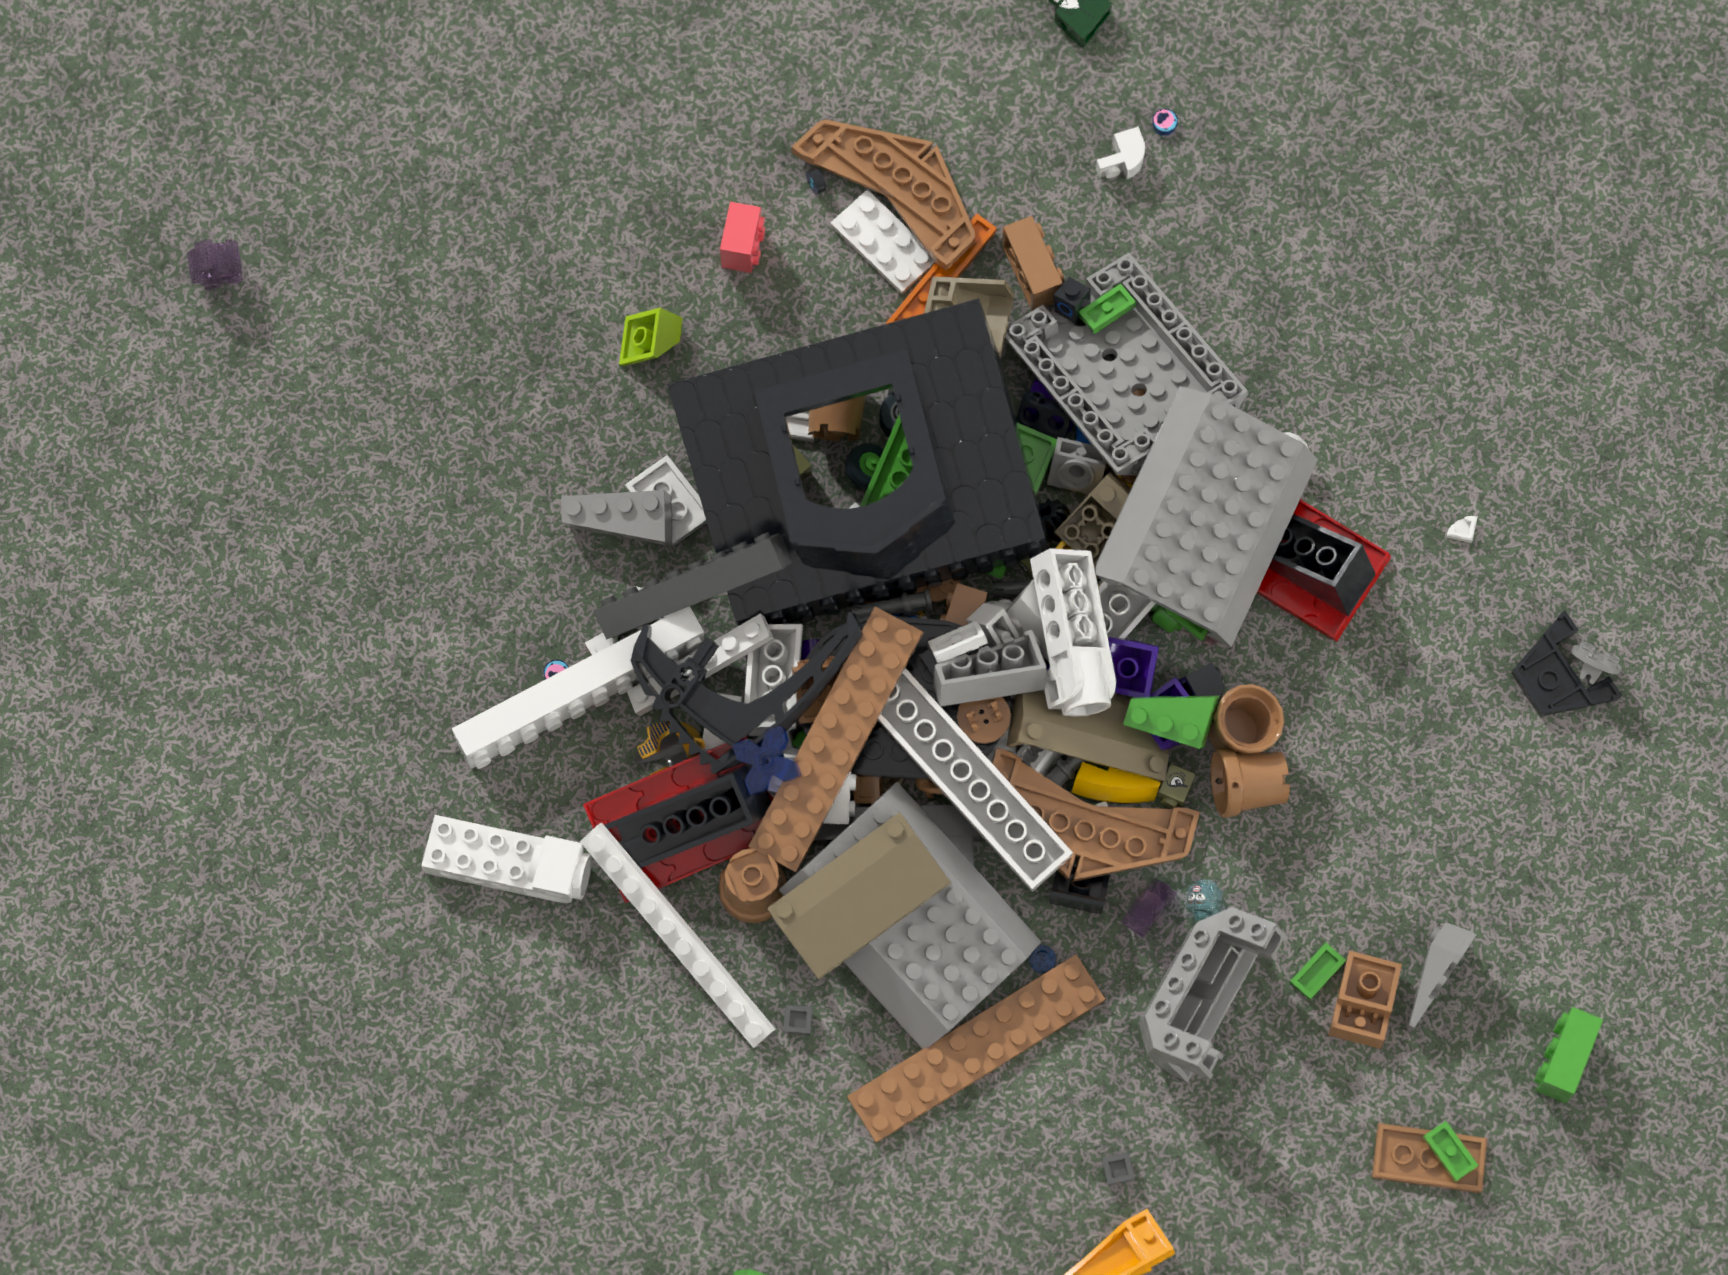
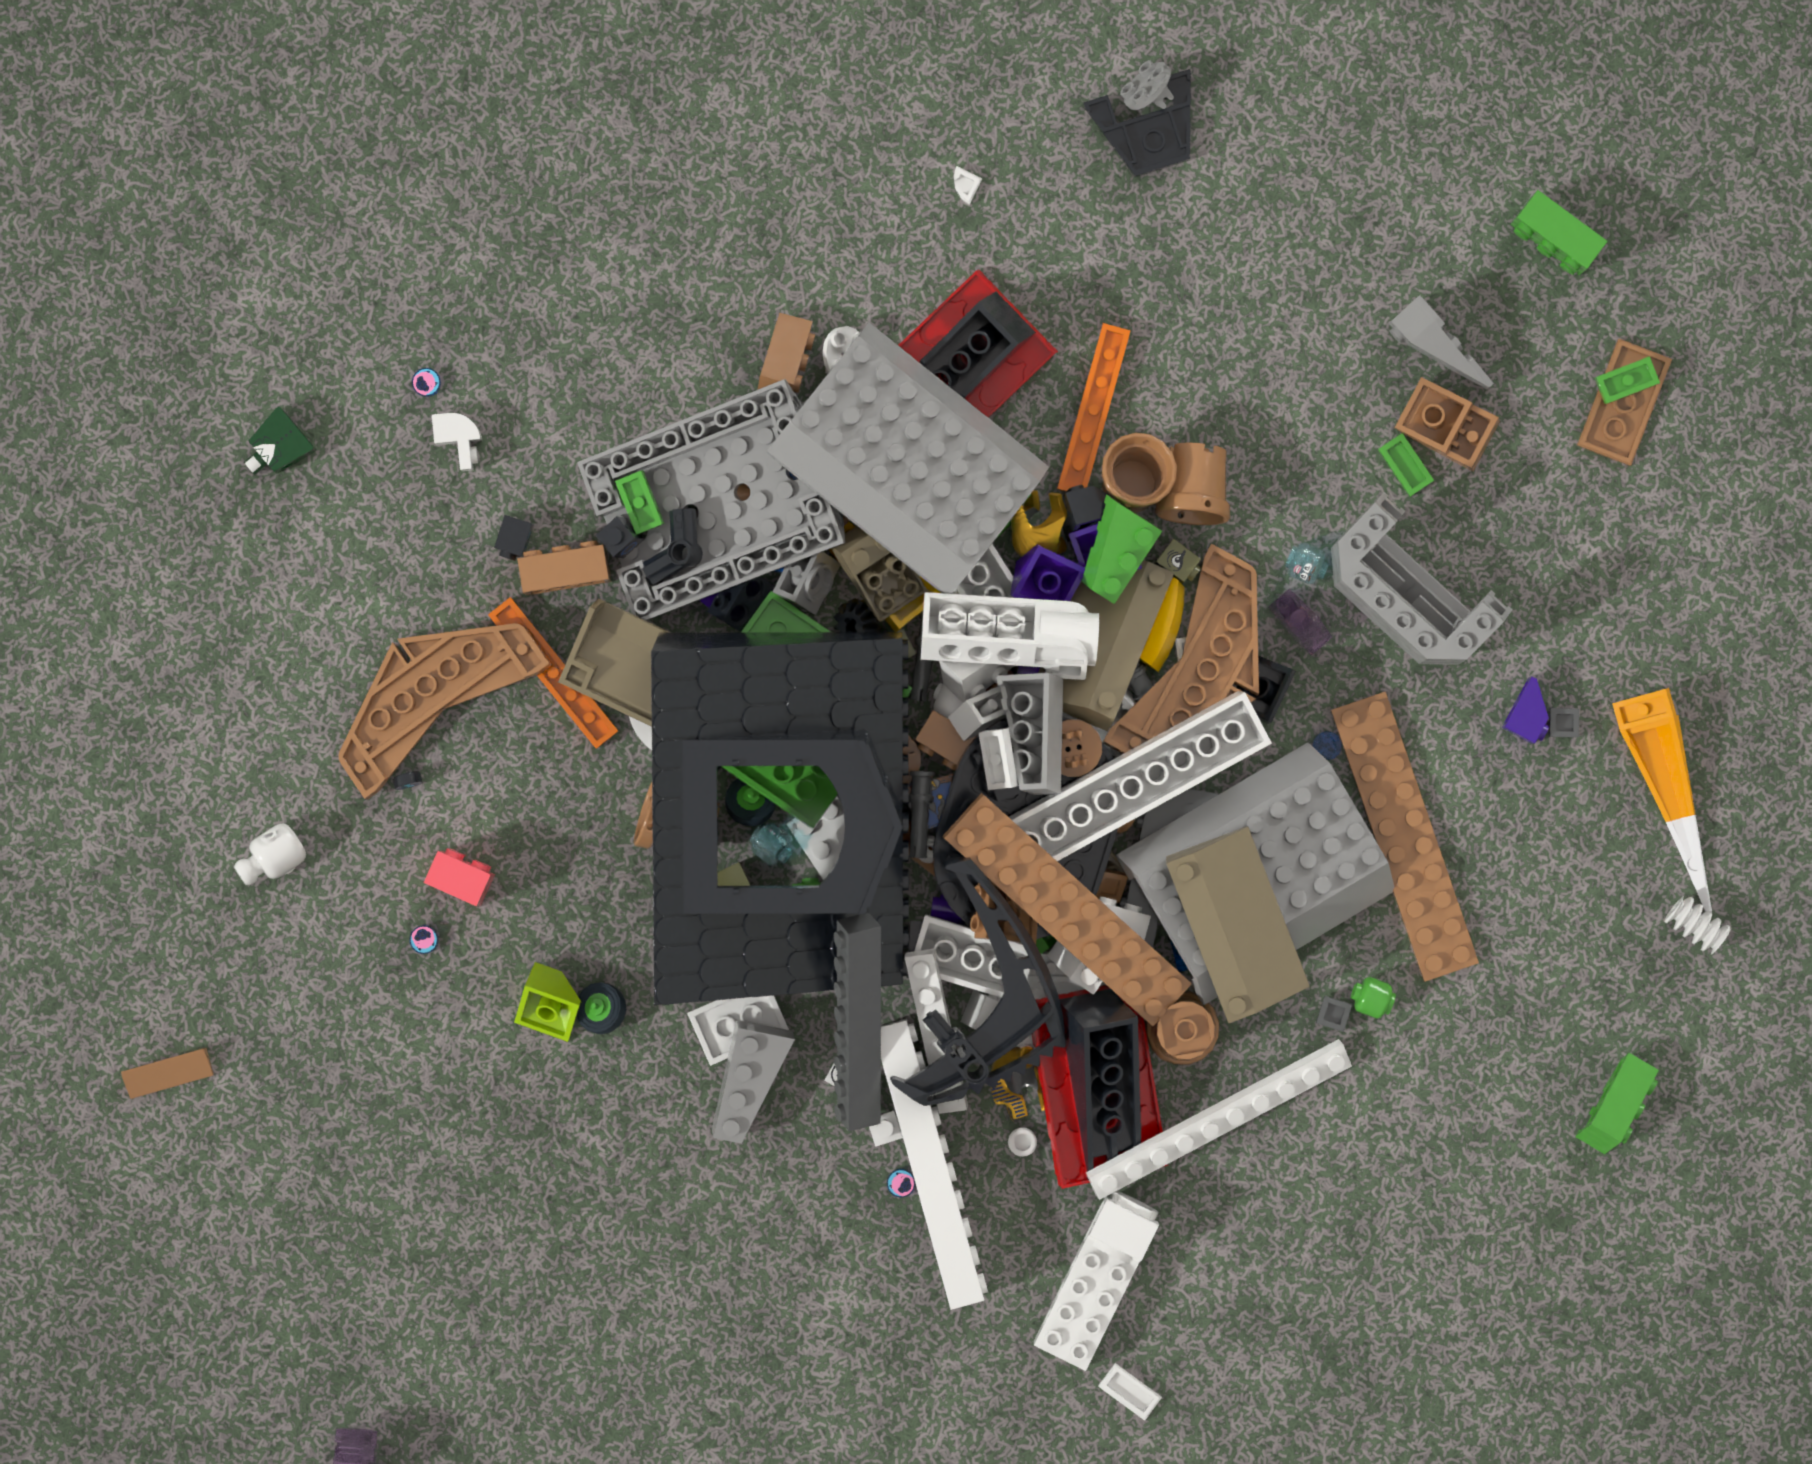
camera: 80 degrees left, 15 degrees up
(410, 917) = (1129, 1391): none -> white tile
(517, 45) = (167, 1073): none -> medium nougat slope
(617, 770) = (1022, 1141): none -> white tile
(651, 381) = (601, 1008): none -> black wheel
(680, 226) = (424, 939): none -> tile
(724, 84) = (273, 854): none -> white piece
(761, 772) = (1073, 988): clear blue plant -> none
(821, 1050) = (1373, 997): none -> bright green head
(834, 491) = (771, 844): none -> clear light blue head
(883, 241) = (493, 723): white plate -> none
(1051, 218) = (513, 537): none -> black brick
(1074, 349) = (670, 561): none -> black piece
(1117, 1133) = (1528, 714): none -> dark purple slope
(1170, 656) = (1046, 534): none -> pearl gold piece
(1274, 403) = (787, 352): none -> medium nougat wedge
(1302, 682) = (1094, 407): none -> orange plate

